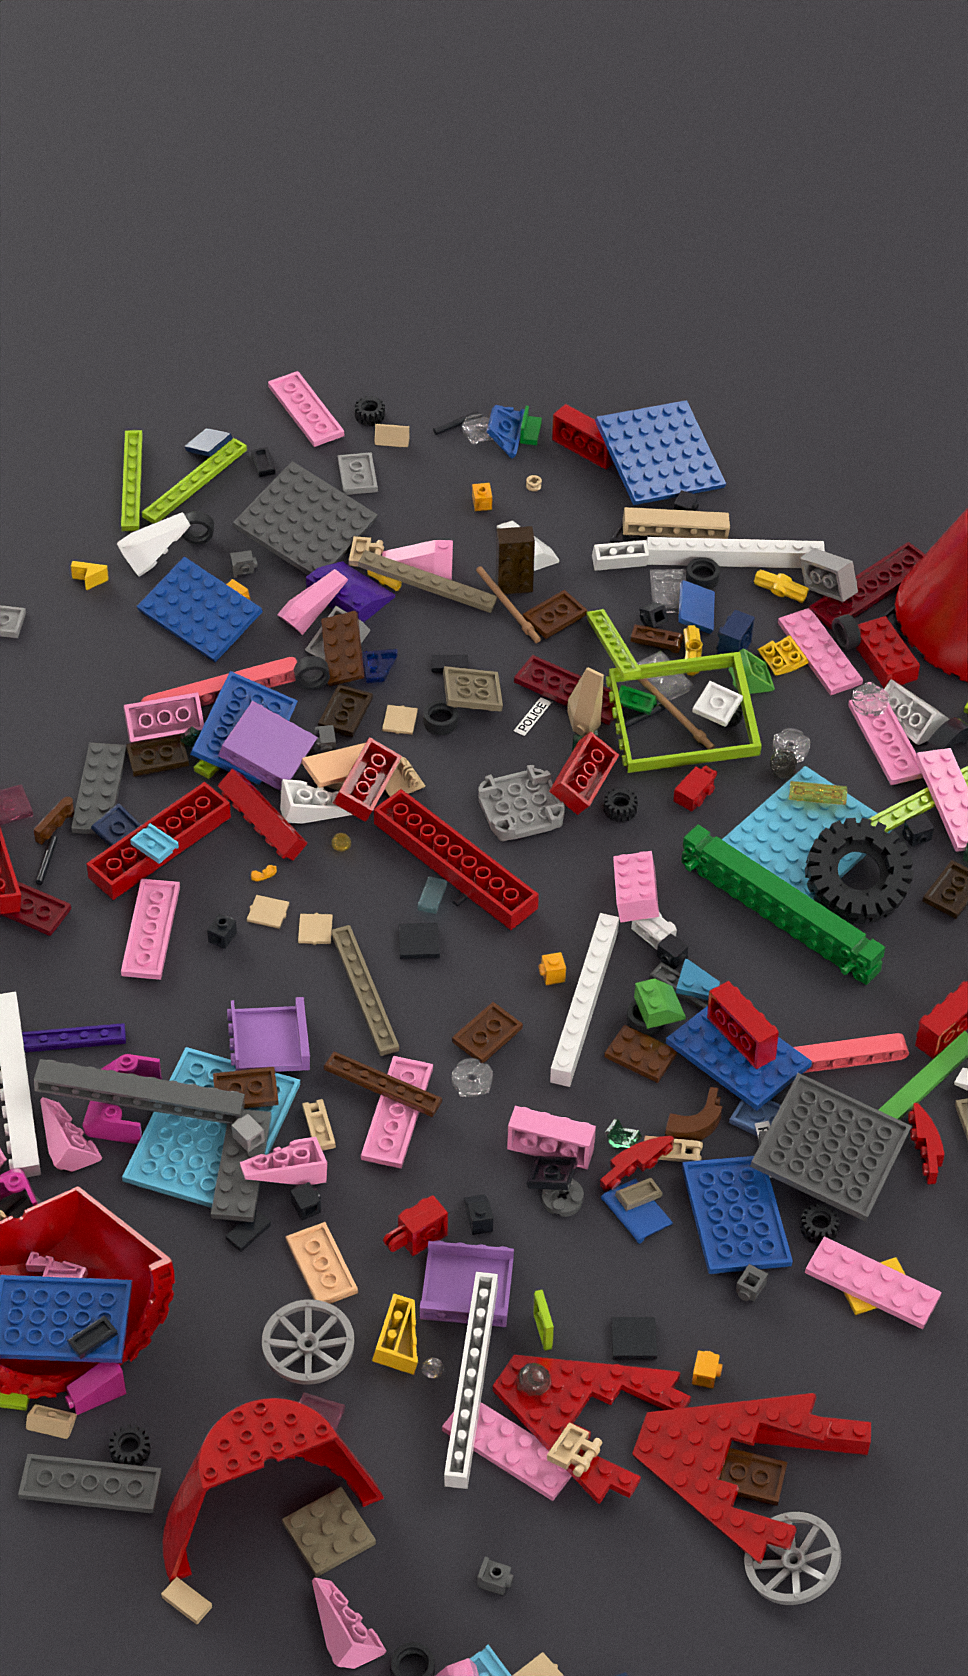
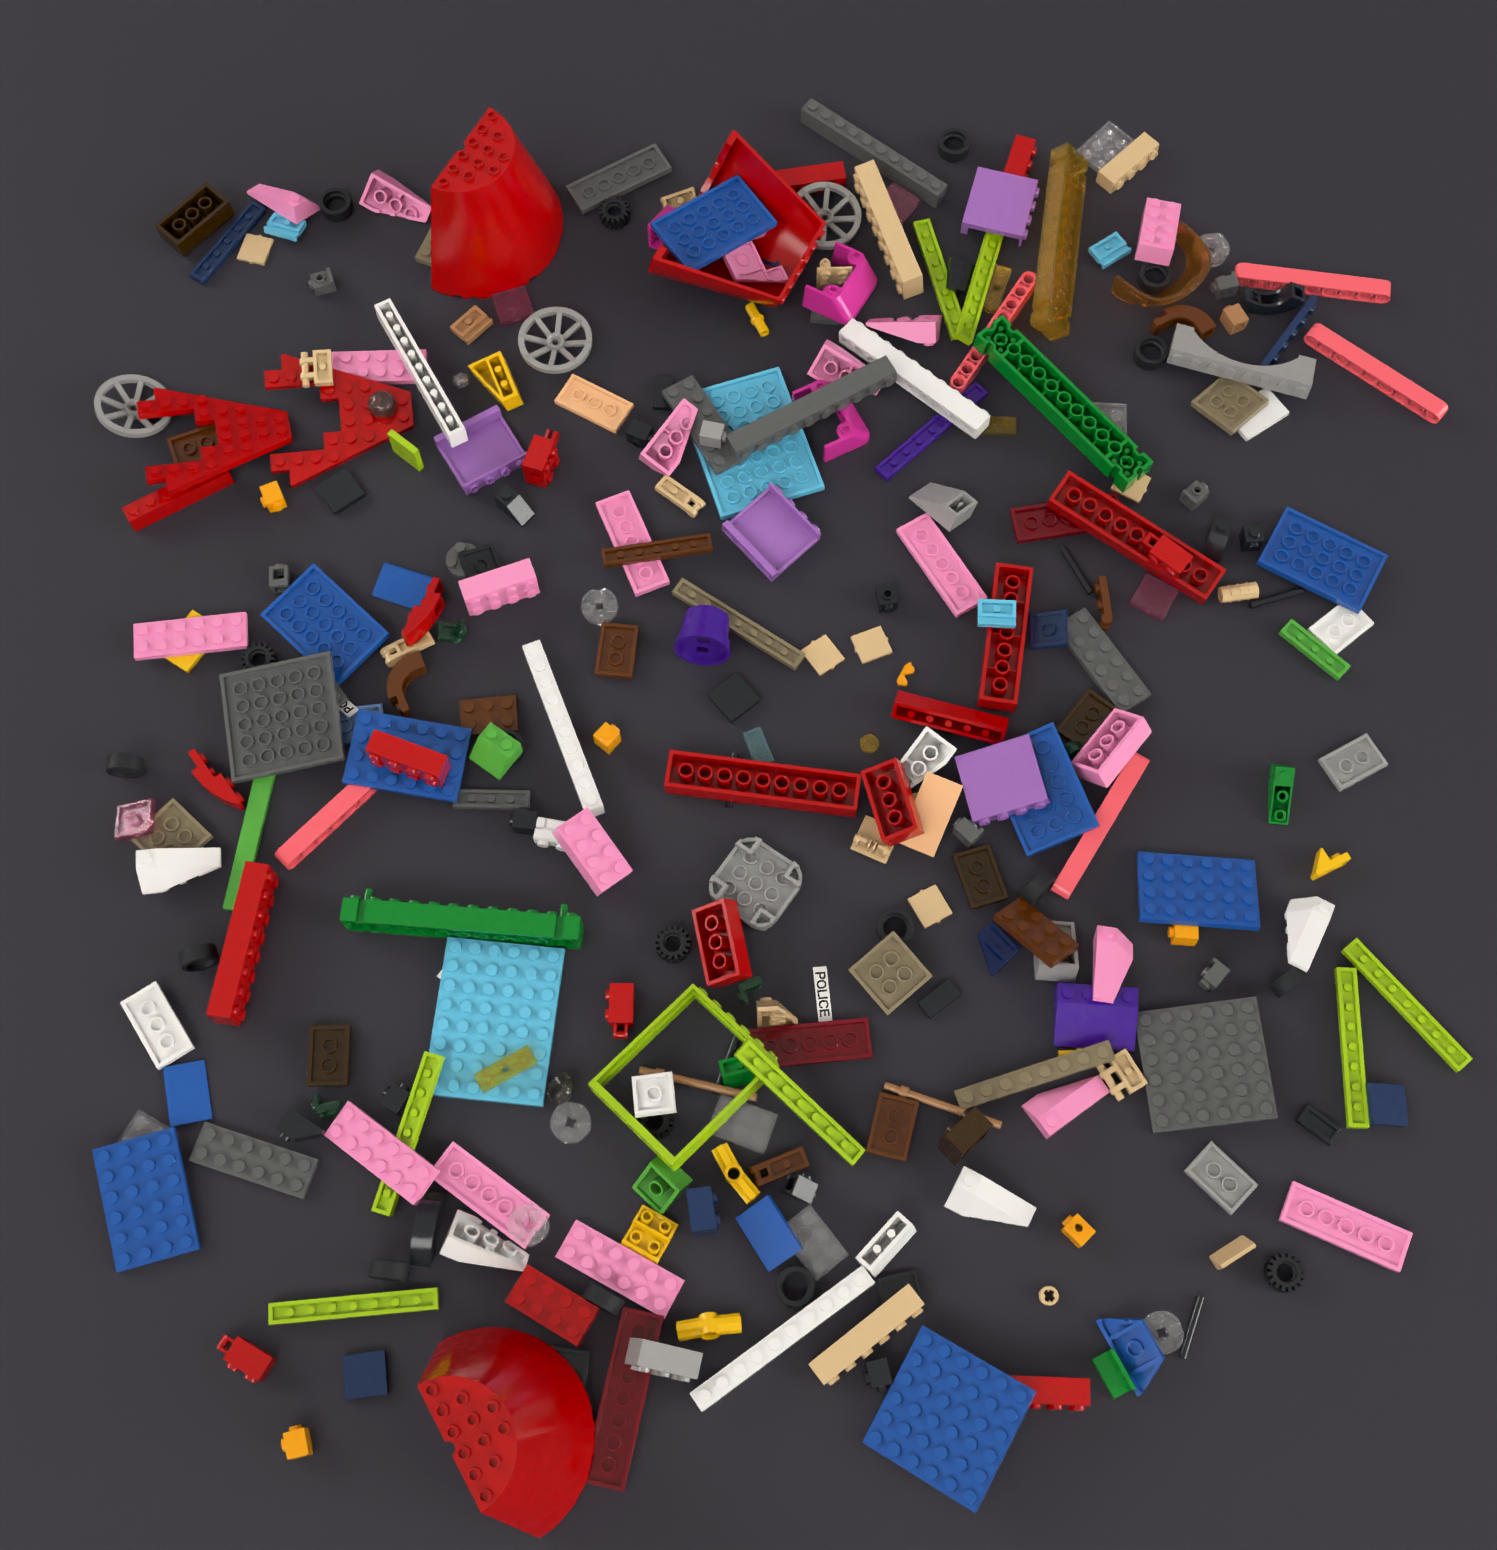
camera: 145 degrees right, 20 degrees up
(65, 632) = (1280, 793): none -> green slope
(92, 1337) = (679, 220): black tile -> none
(101, 963) = (945, 504): none -> light grey slope
(256, 1084) = (749, 477): reddish brown plate -> none
(376, 1421) = (471, 325): none -> medium nougat plate
(406, 981) = (704, 636): none -> dark purple piece
(638, 1194) = (409, 596): dark tan tile -> none
(695, 981) = (484, 803): dark azure wing -> none
(882, 847) = (379, 1000): black tyre -> none

